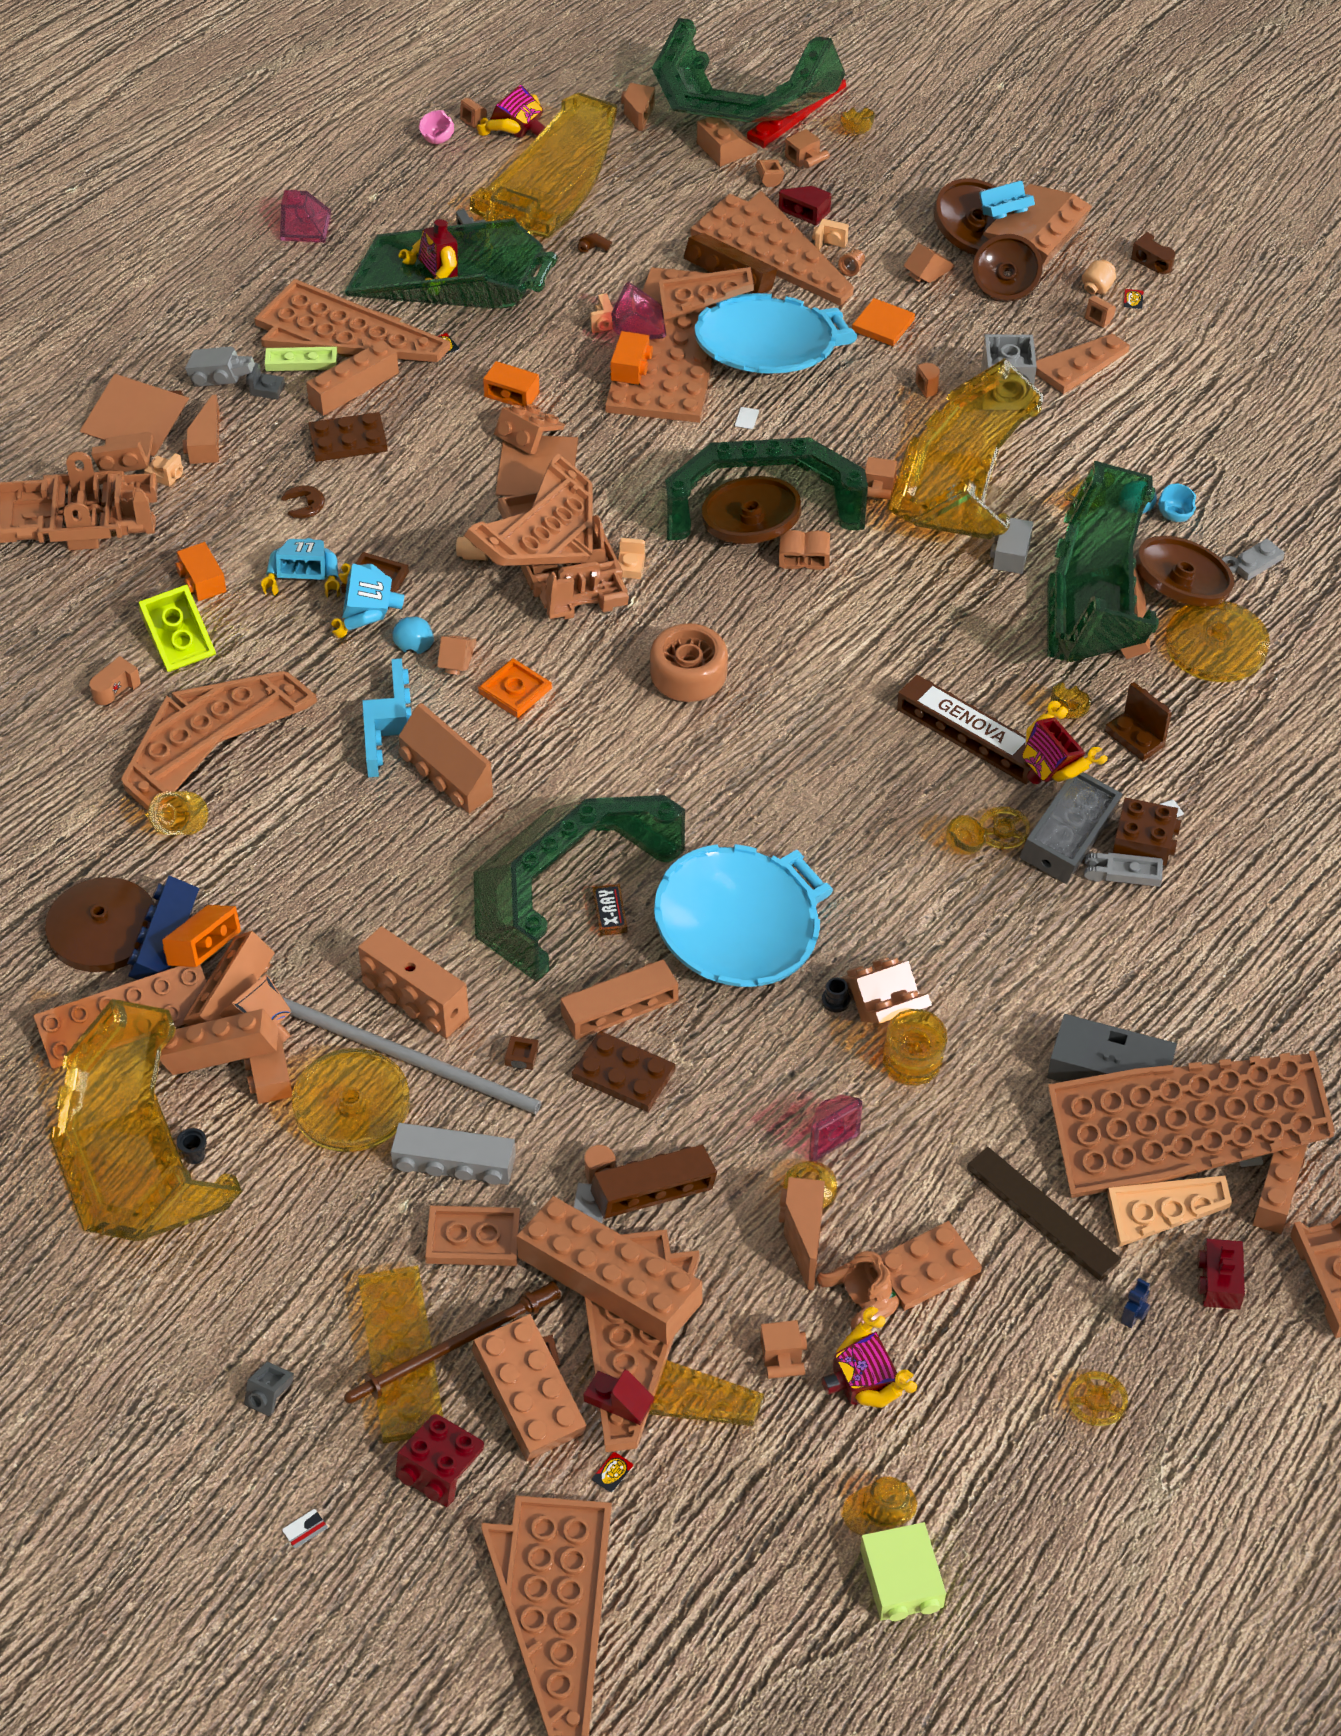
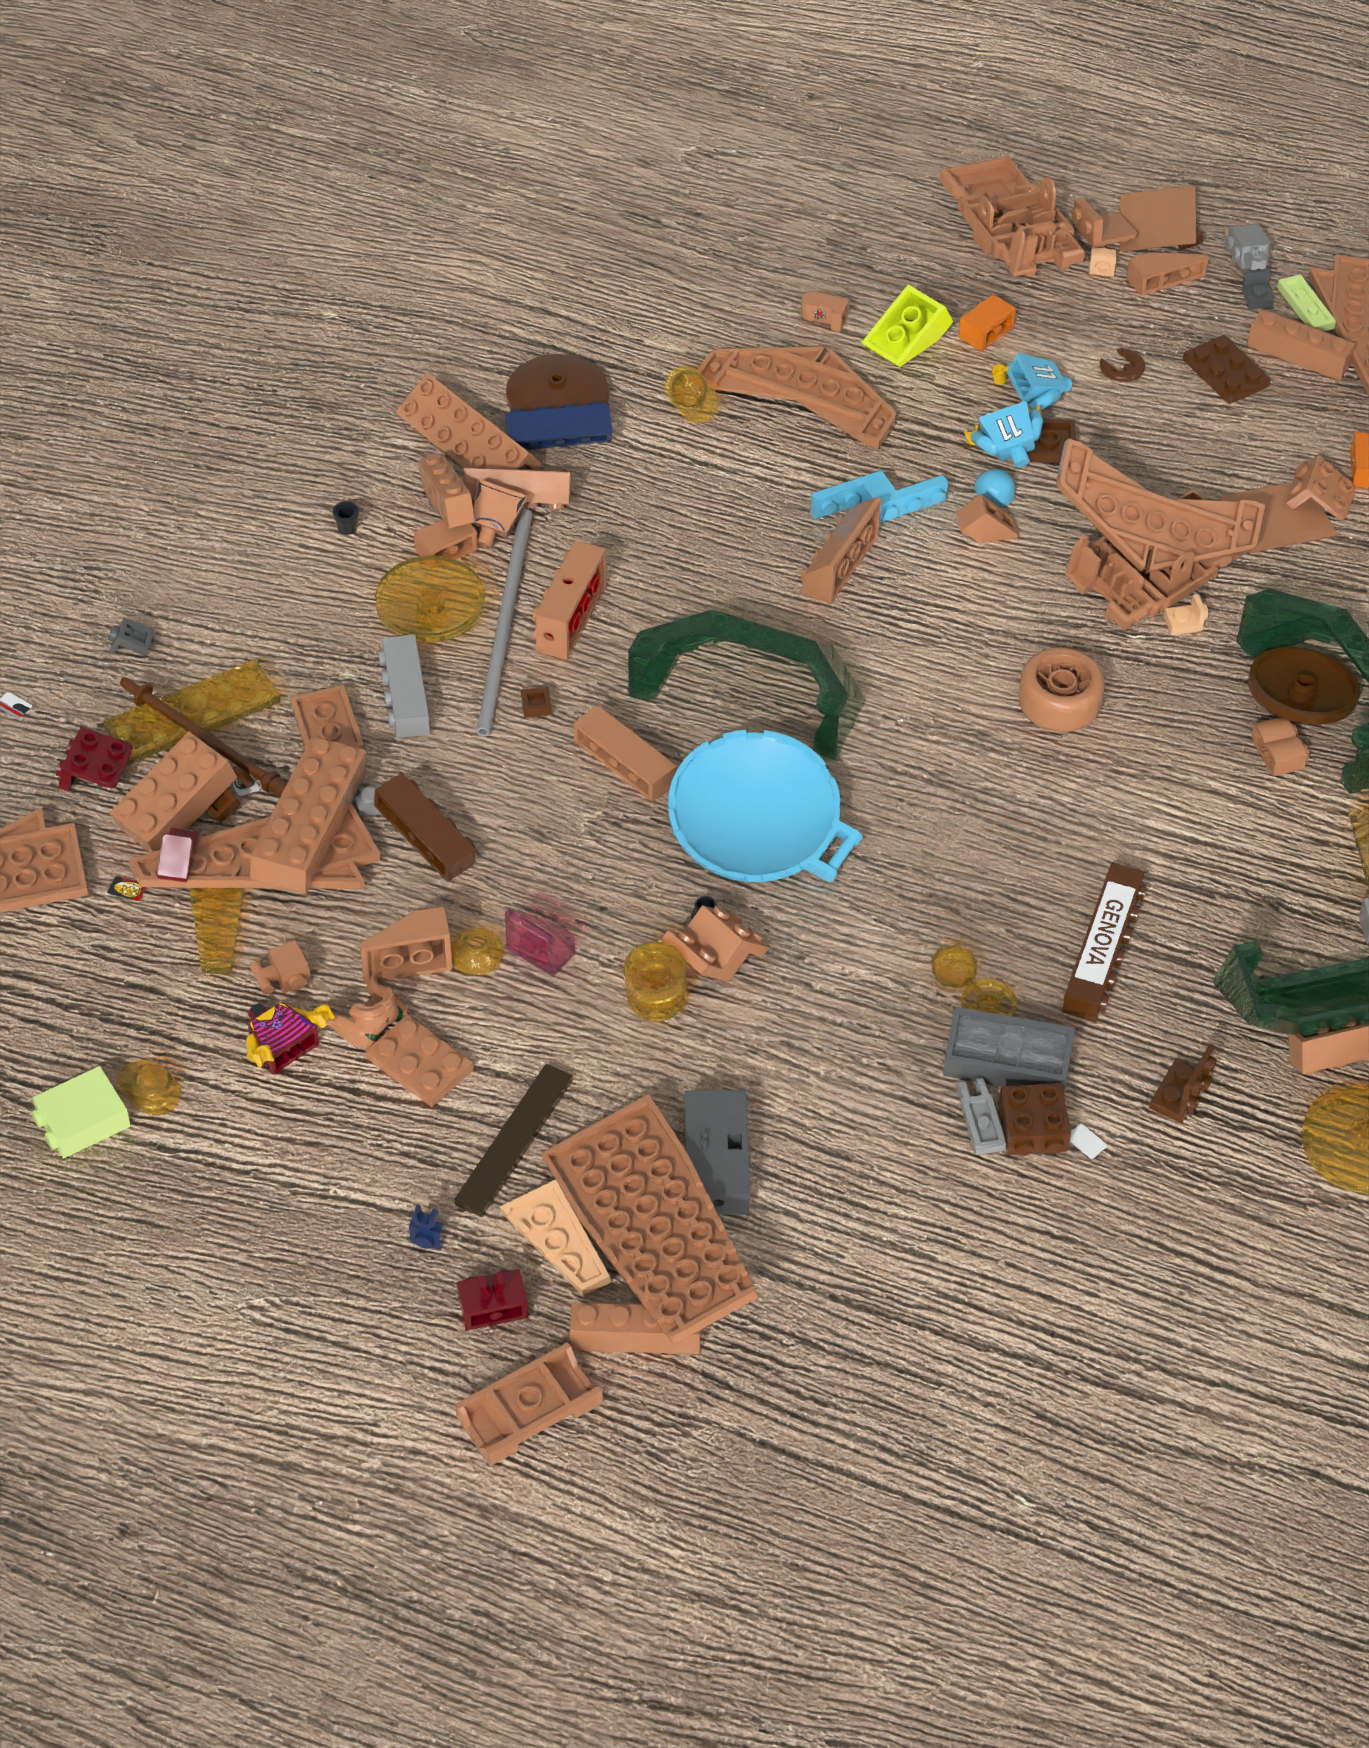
camera: 70 degrees right, 0 degrees up
(115, 1136) = (338, 467): clear yellow windscreen -> none
(201, 935) = (556, 446): orange brick -> none
(515, 688) = (971, 580): orange tile -> none
(598, 1158) = (433, 786): nougat brick -> none
(610, 910) = (739, 717): tile -> none
(623, 1071) = (549, 782): reddish brown plate -> none
(1053, 751) = (1081, 992): torso -> none
(1073, 699) = (1187, 1015): clear yellow hair -> none
(1098, 1398) = (317, 1228): clear yellow wheel -> none

